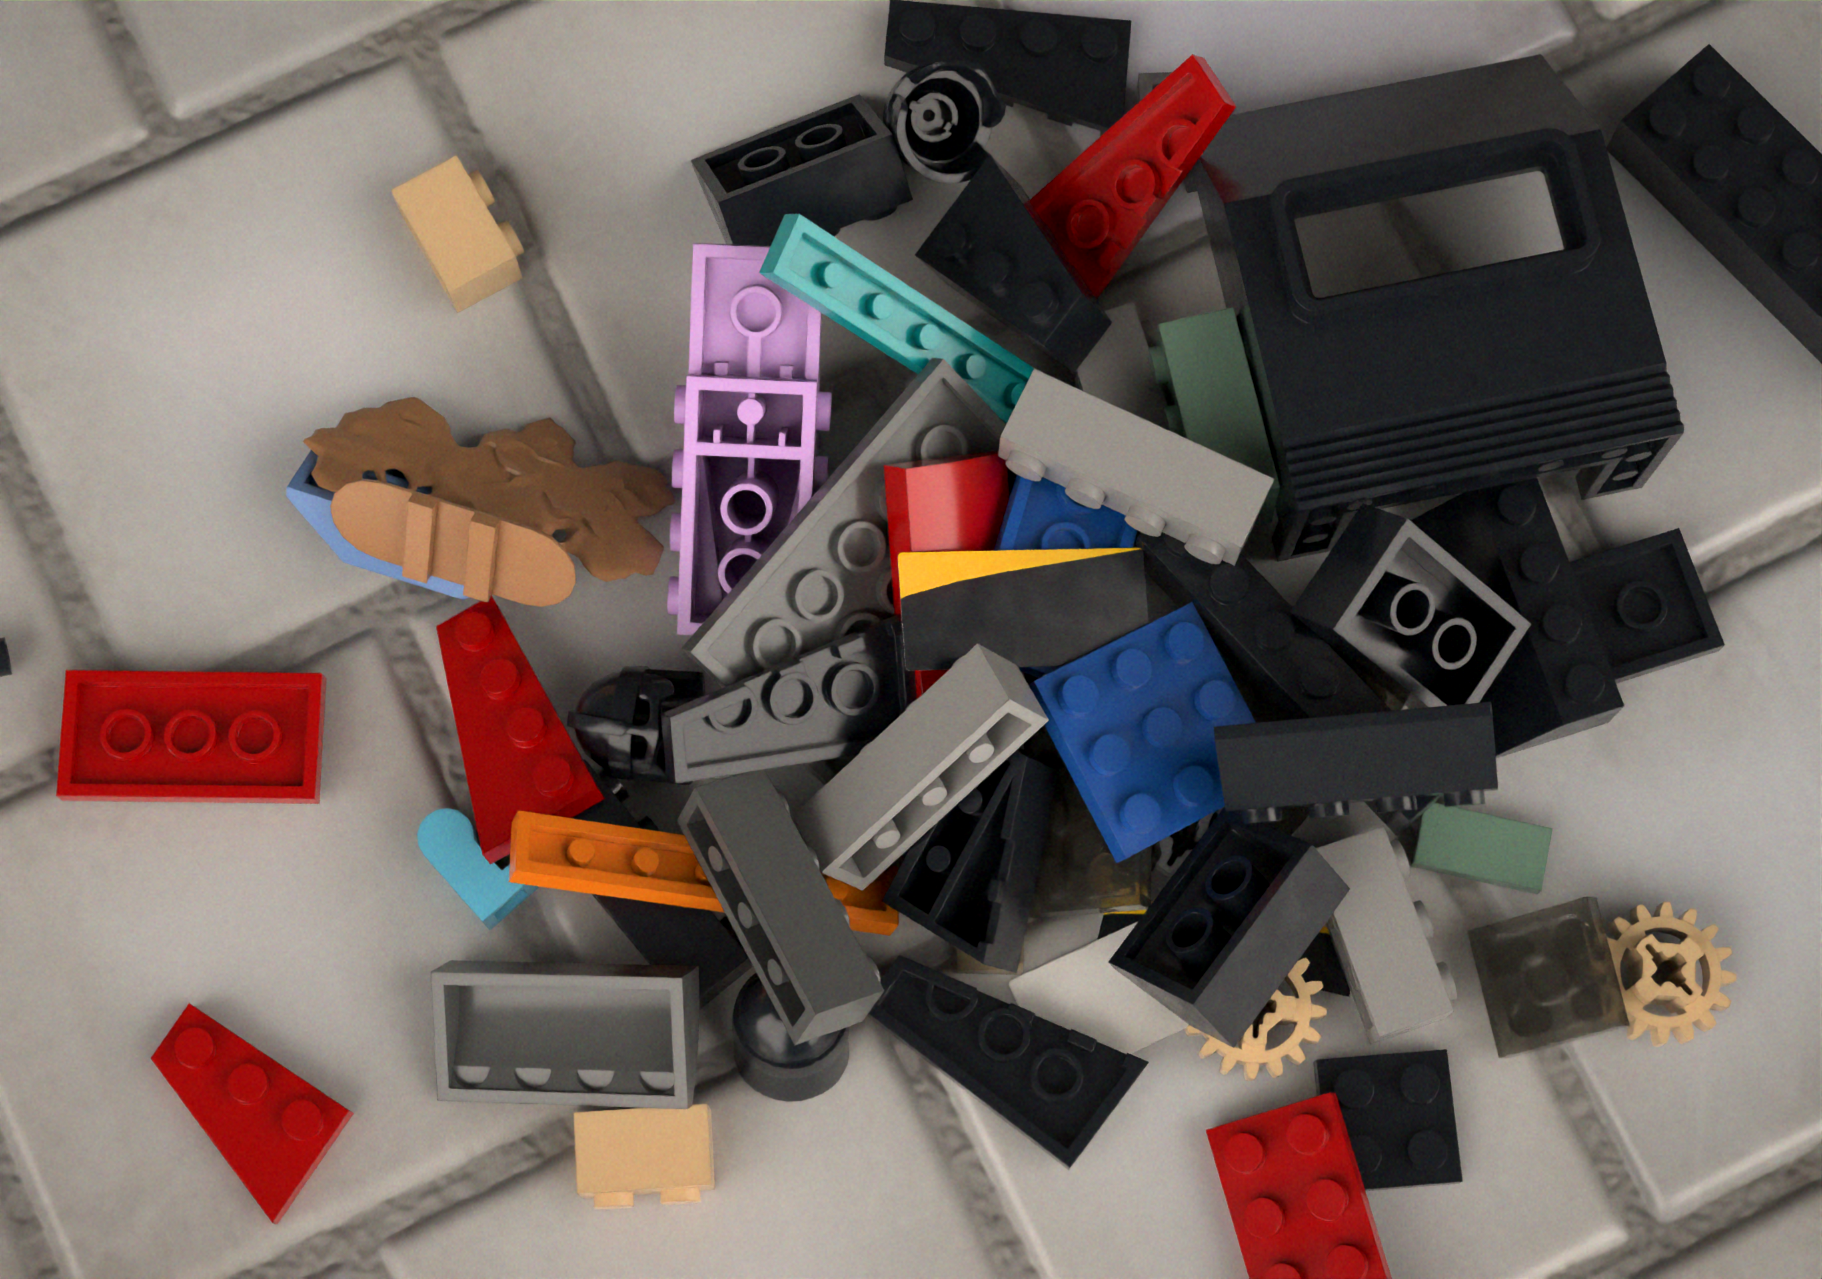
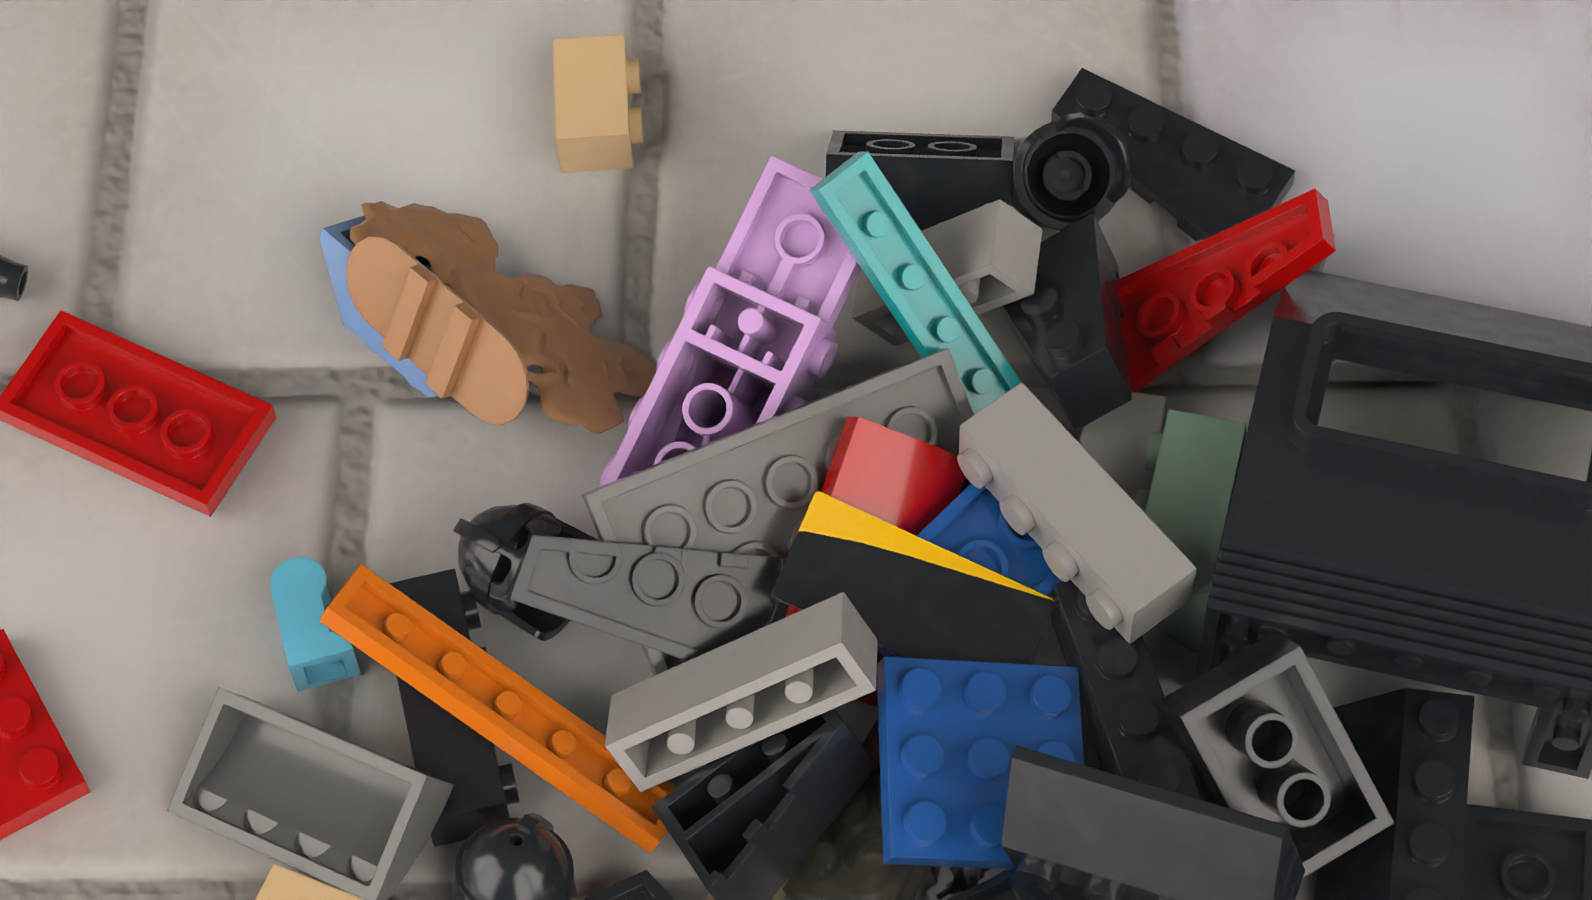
camera: 30 degrees right, 15 degrees down
(508, 730) = (405, 511): red wing -> none
(780, 905) = (551, 755): dark grey brick -> none
(920, 243) = (987, 254): none -> light grey brick

